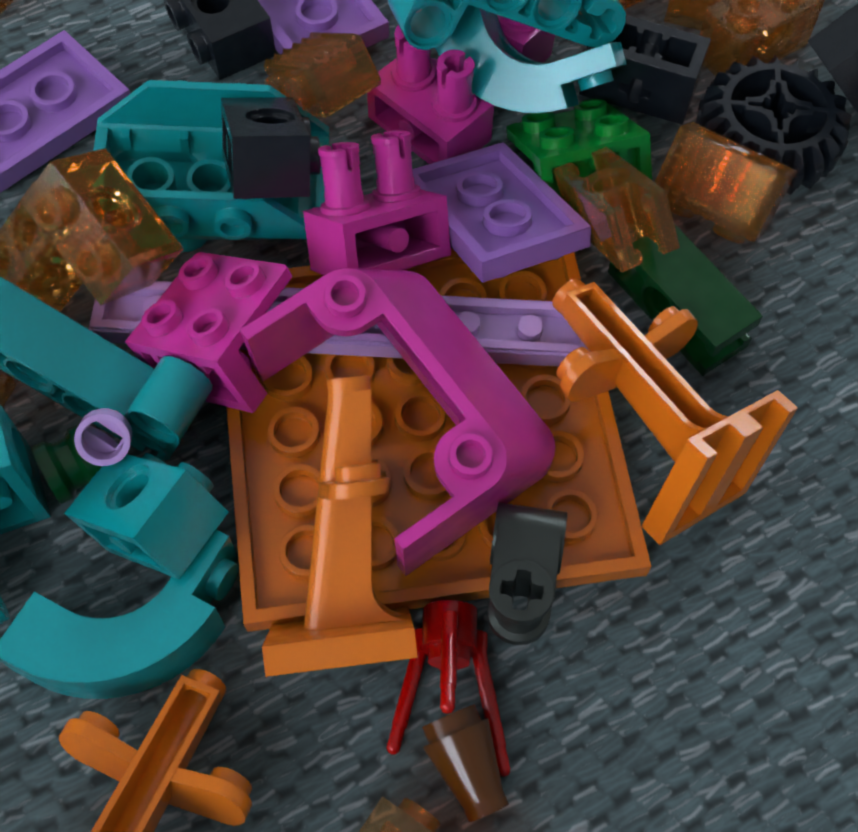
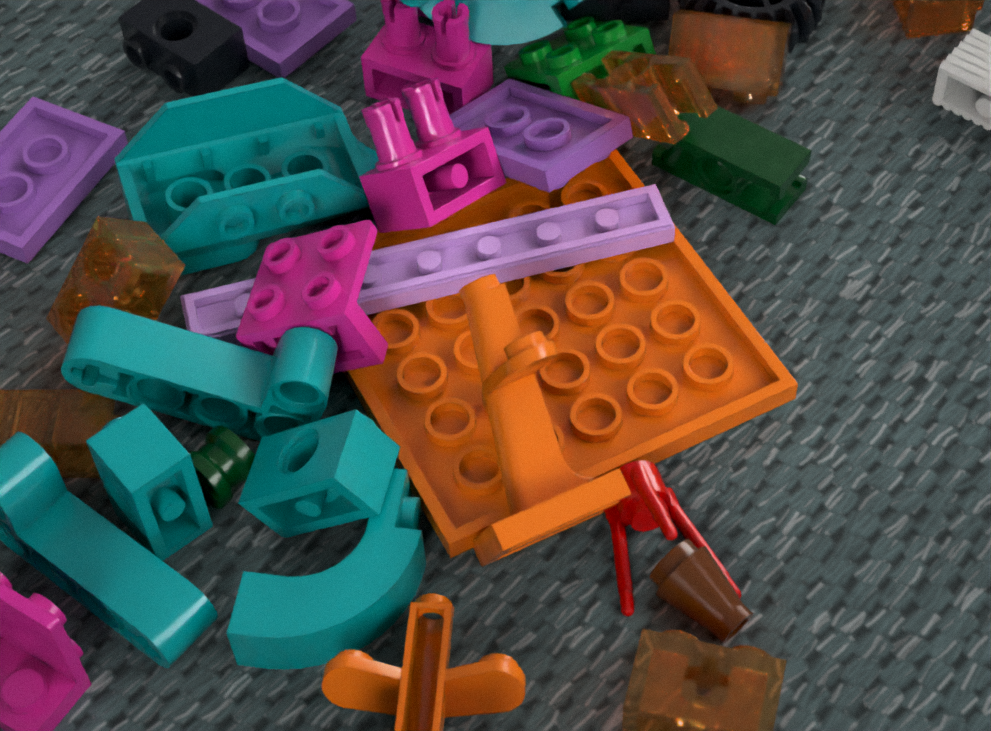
camera: 15 degrees left, 10 degrees down
(95, 444) = (258, 404): lavender hinge -> none
(101, 224) = (180, 235): clear orange brick -> none
(268, 148) = (304, 129): black brick -> none
(323, 72) = (321, 55): clear orange brick -> none
(497, 438) = (612, 307): dark pink windscreen -> none
(525, 564) = (689, 414): pearl dark grey piece -> none
(711, 451) = (813, 266): orange piece -> none

